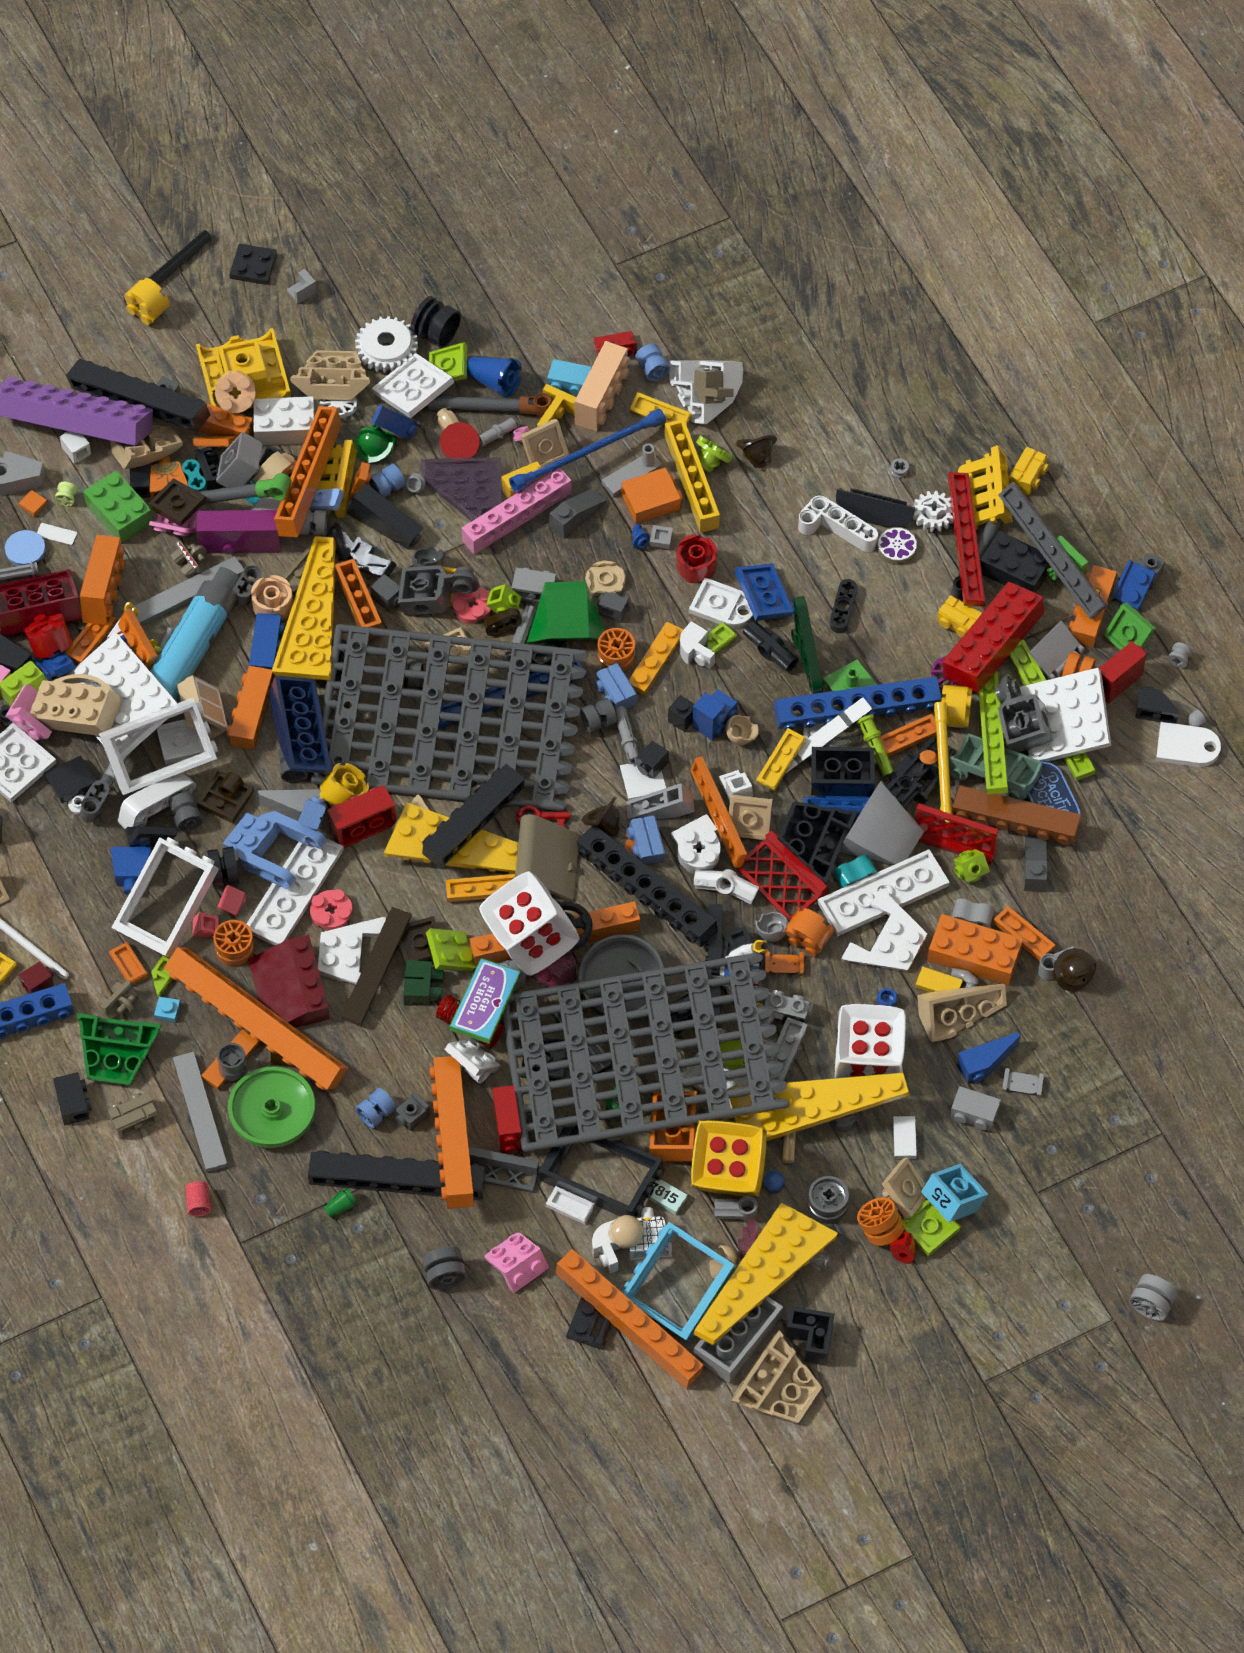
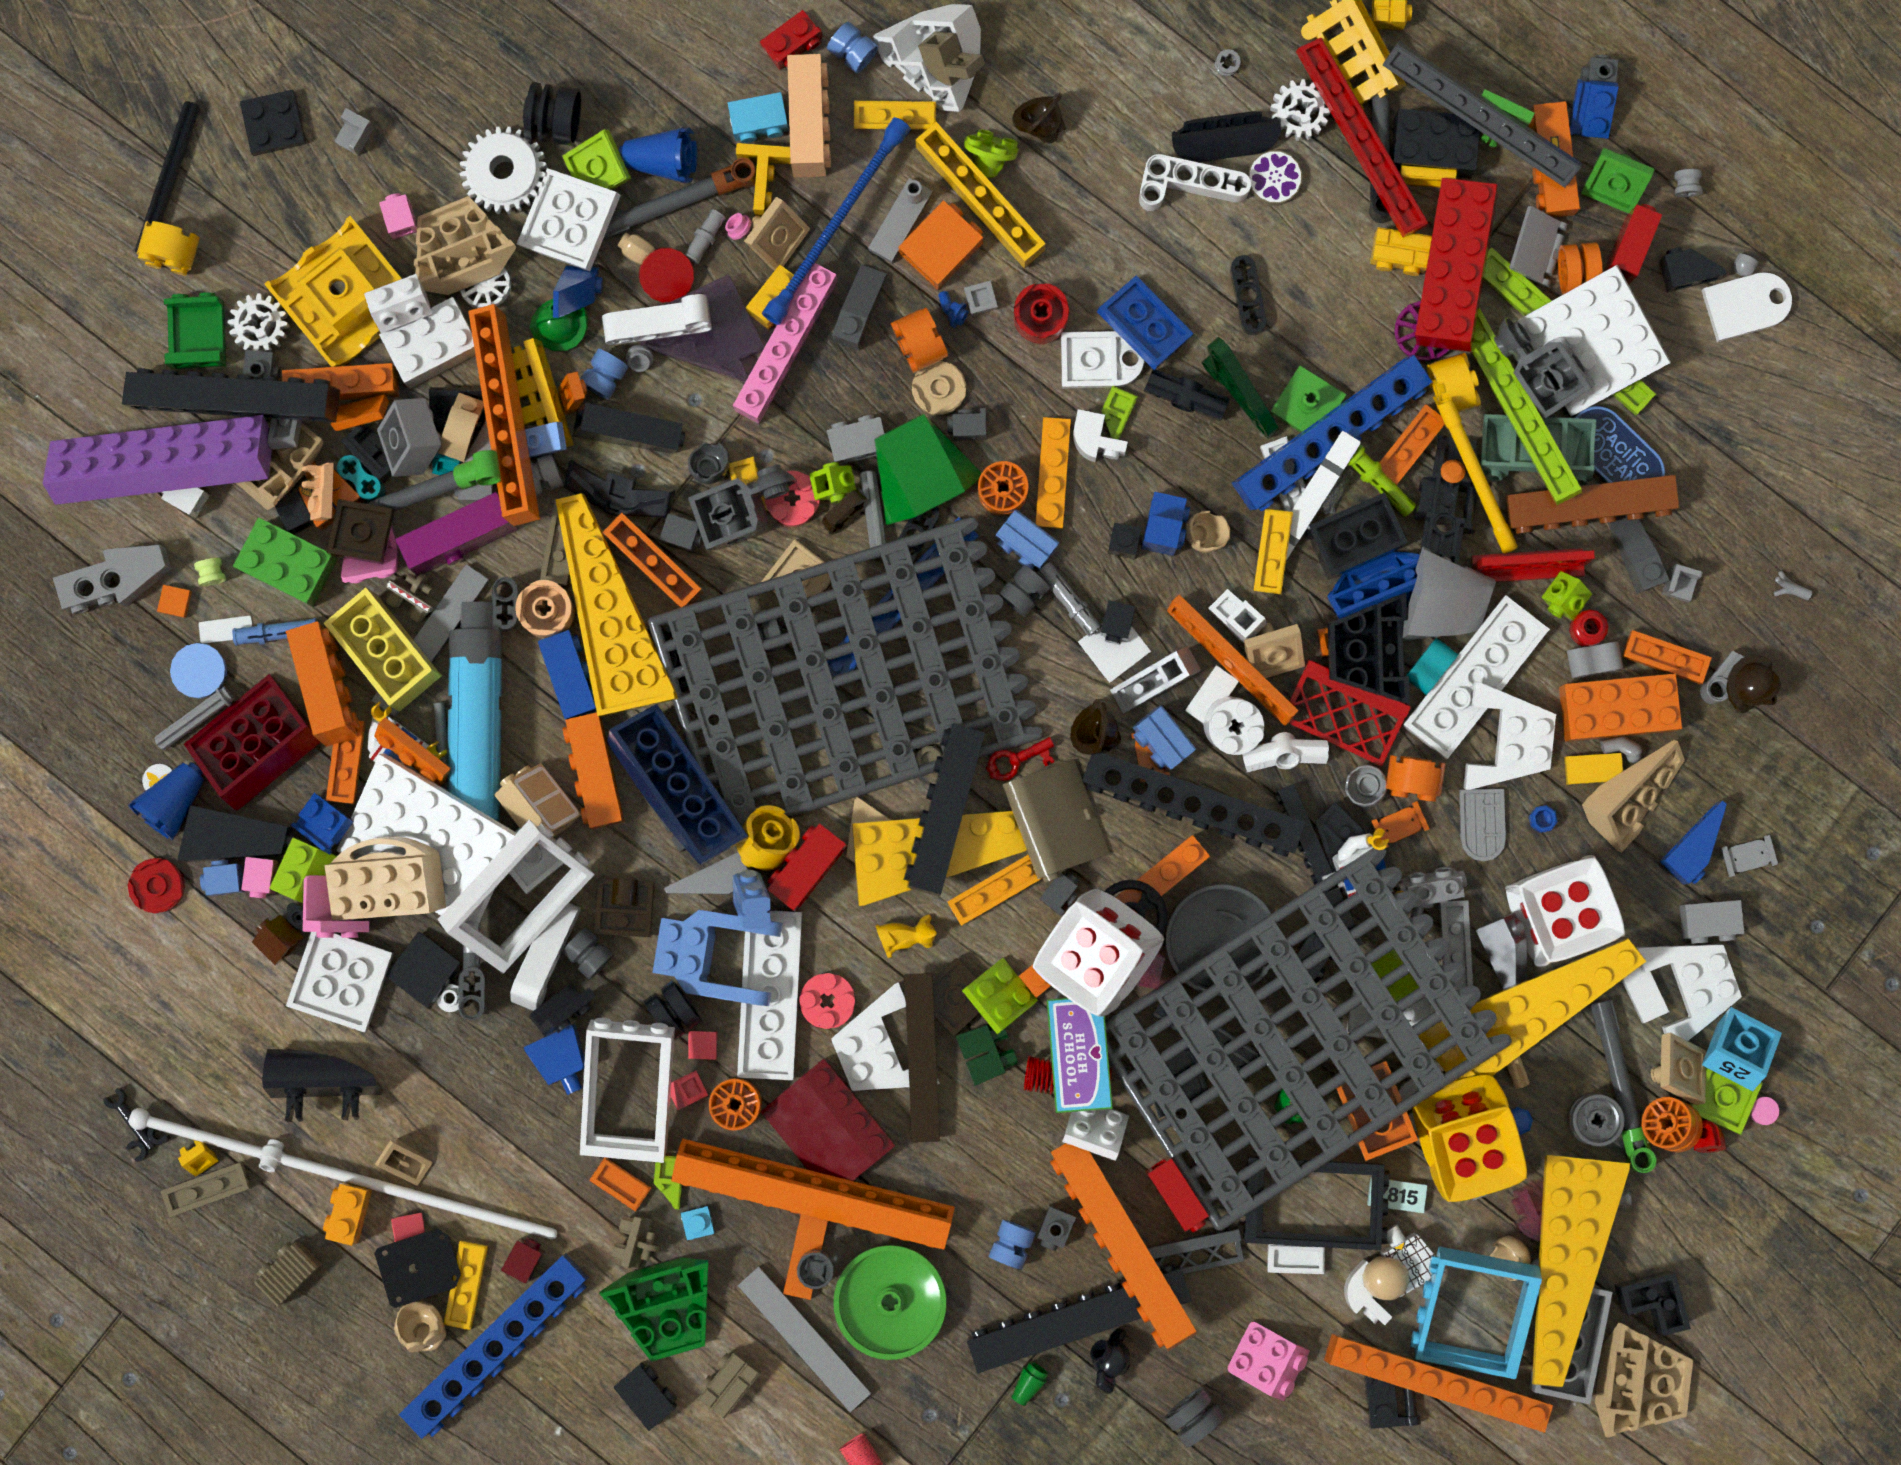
camera: 20 degrees left, 25 degrees up
(48, 635) = (295, 791): red brick -> none
(66, 539) = (264, 633): none -> medium blue pin
(137, 355) = (195, 331): none -> green panel
(152, 577) = (382, 649): none -> light yellow brick
(160, 428) = (284, 433): none -> light grey plate
(161, 474) = (322, 484): none -> light nougat plate
(180, 367) = (247, 327): none -> white gear
(227, 400) = (353, 340): light nougat brick -> none
(275, 382) = (398, 303): none -> white brick
(304, 343) = (398, 215): none -> bright pink brick
(402, 887) = (901, 936): none -> yellow animal
(404, 1209) = (1110, 1360): none -> black piece
(440, 463) = (658, 322): none -> white beam
(606, 540) = (919, 339): none -> orange brick
(819, 1059) = (1506, 949): none -> flat silver slope
(843, 985) = (1482, 823): none -> light grey window
(850, 1226) = (1633, 1136): none -> dark grey piece
(951, 1140) = (1703, 981): none -> white wing
(954, 1249) = (1764, 1111): none -> bright pink tile
(977, 889) = (1597, 627): none -> red head
(996, 579) = (1425, 176): none -> yellow tile
(1057, 891) = (1681, 582): none -> light grey panel
(1133, 927) = (1791, 588): none -> light grey bar

